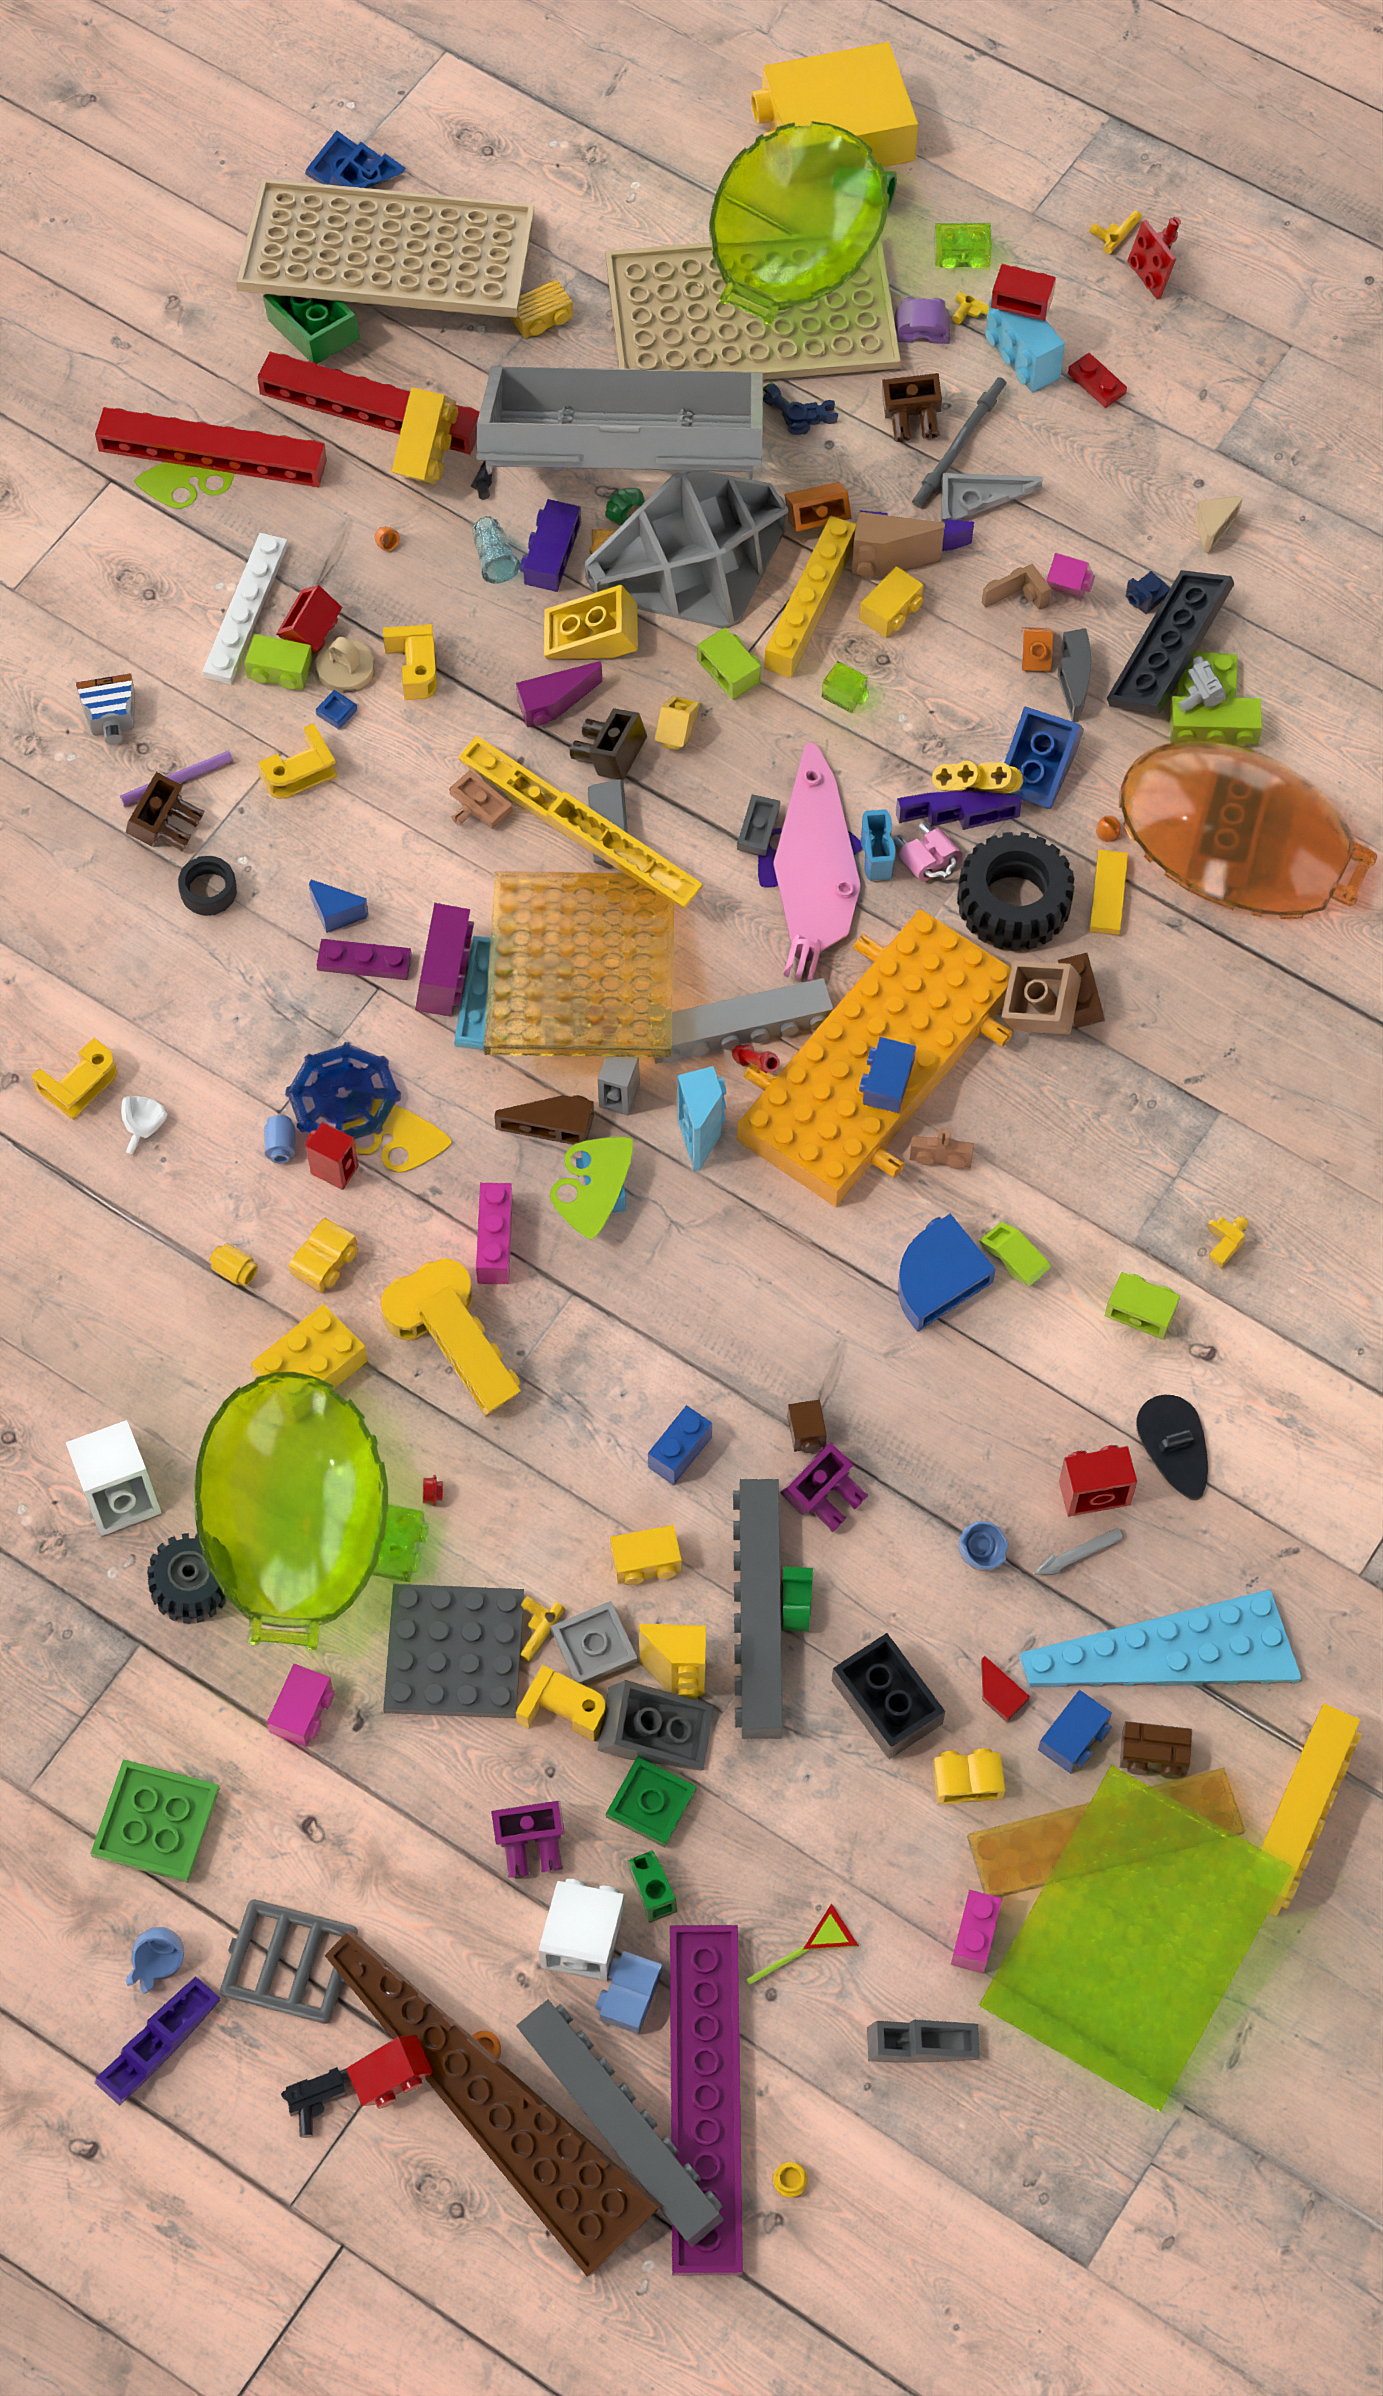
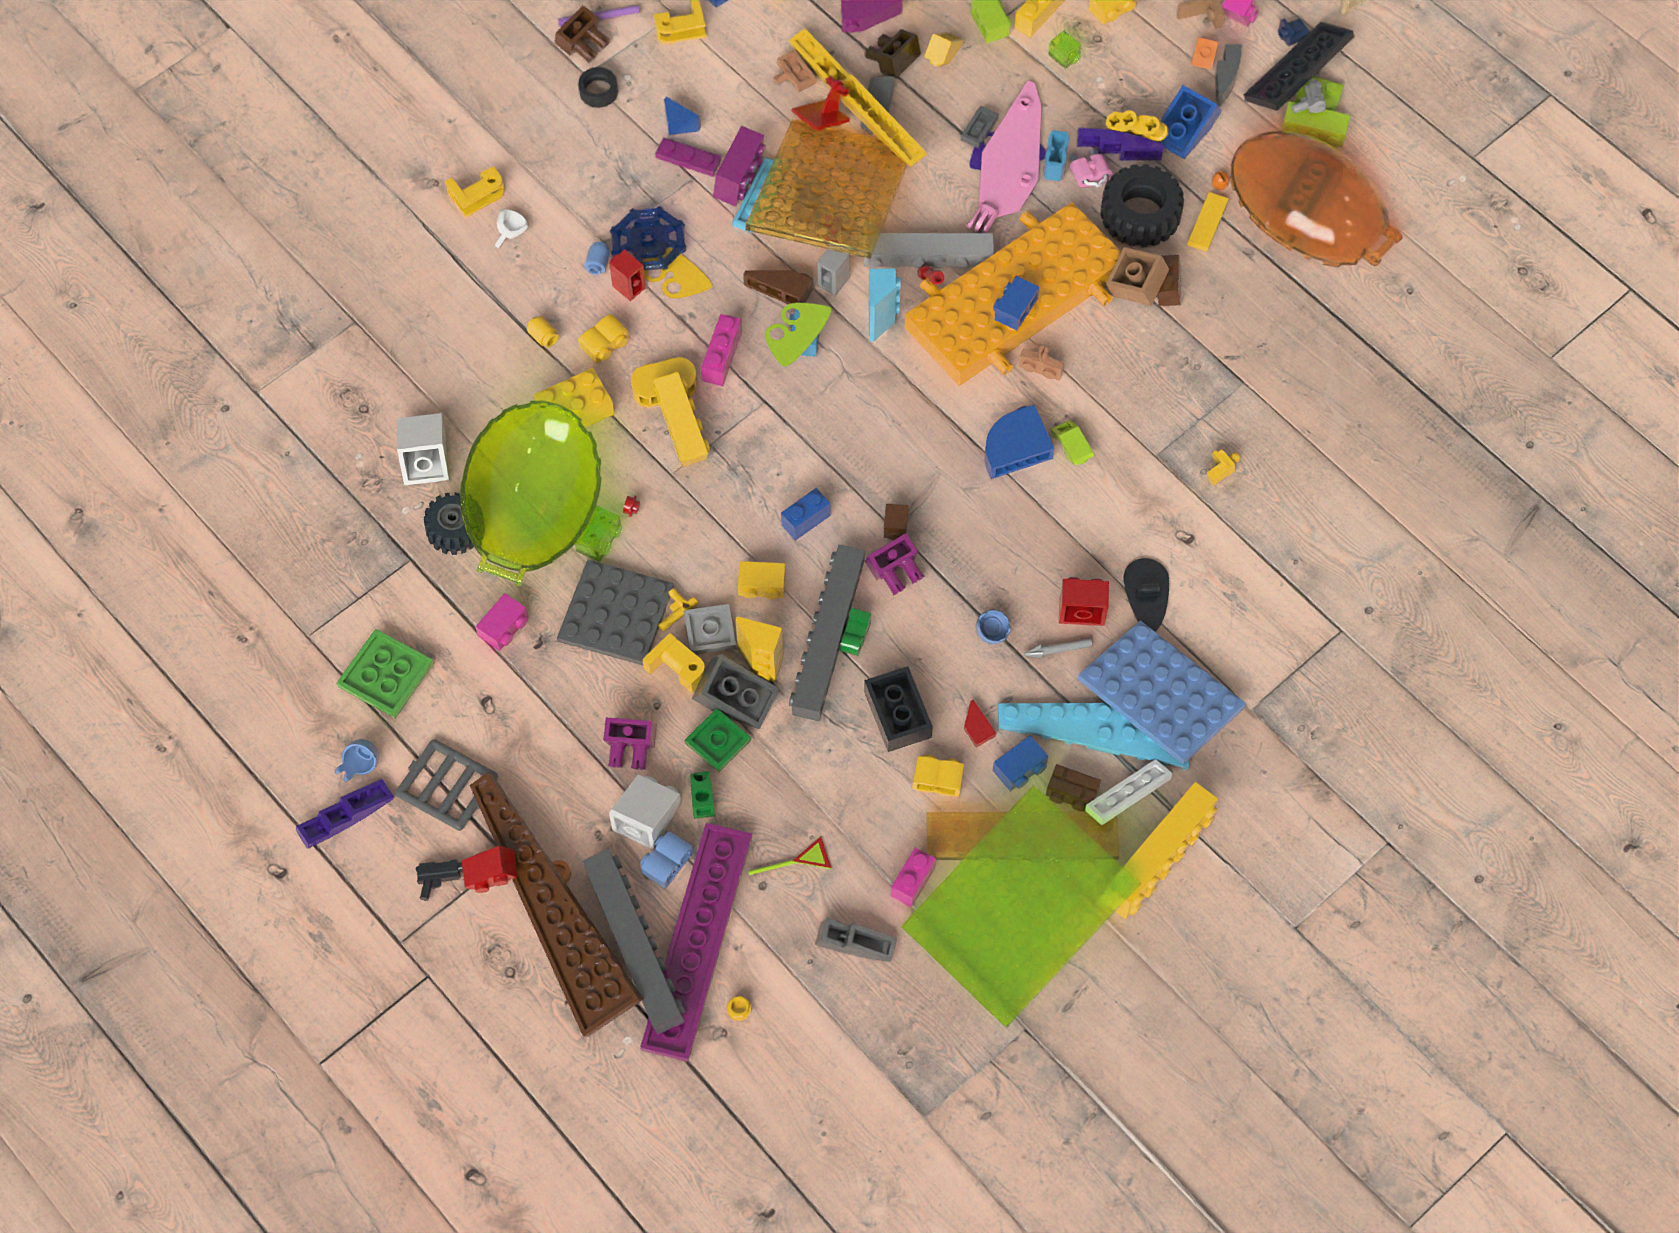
camera: 15 degrees right, 0 degrees up
(538, 855) = (825, 112): none -> red plate
(1142, 1305) = (1150, 495): lime brick -> none
(1233, 1736) = (1128, 792): none -> white plate
(1236, 1582) = (1161, 692): none -> medium blue plate

